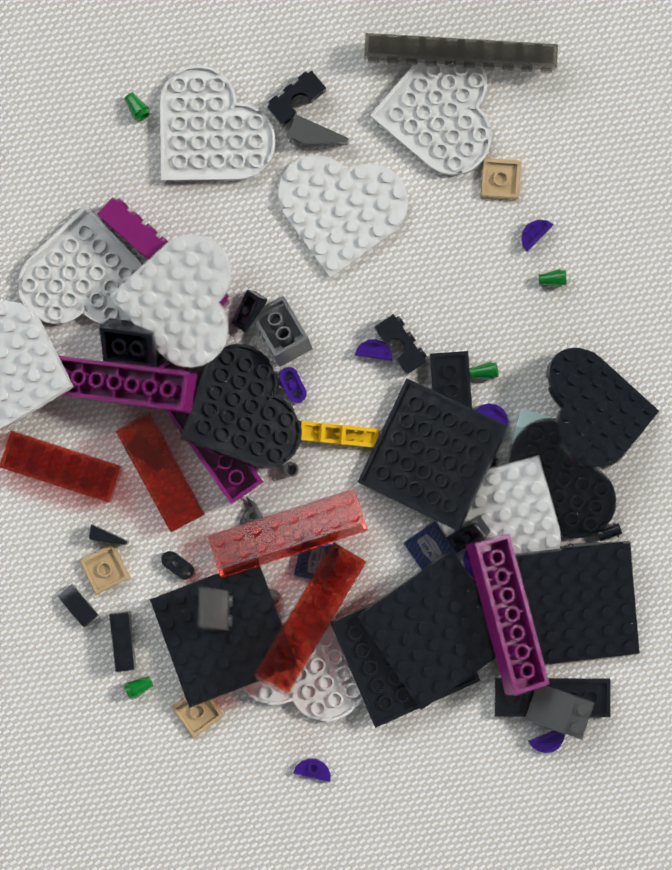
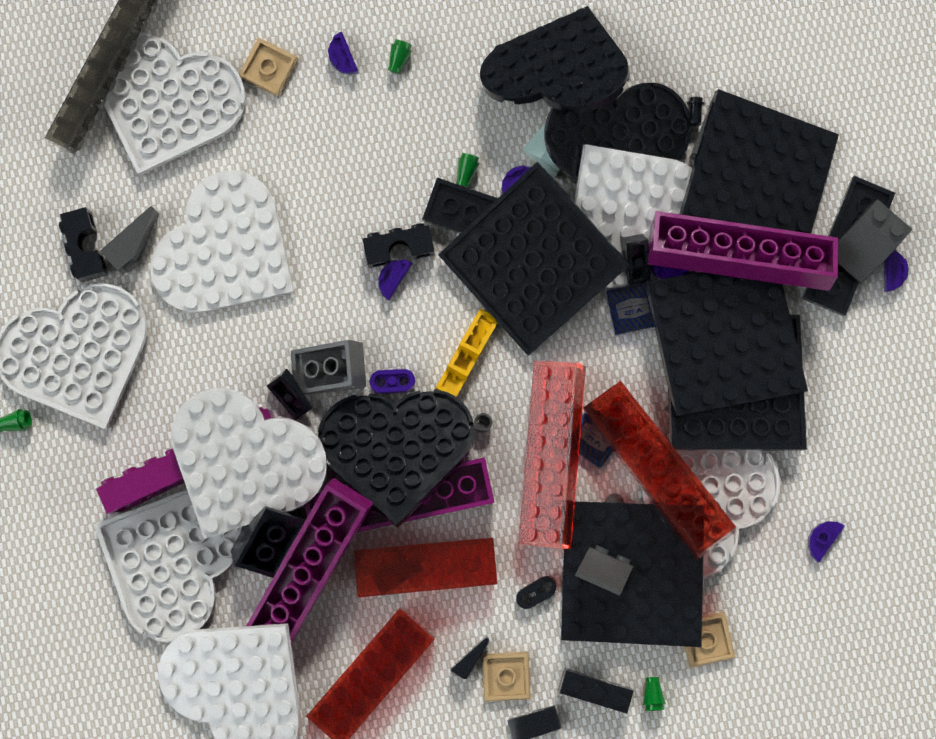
camera: 70 degrees left, 5 degrees down
(251, 509) = (508, 483): dark grey piece -> none

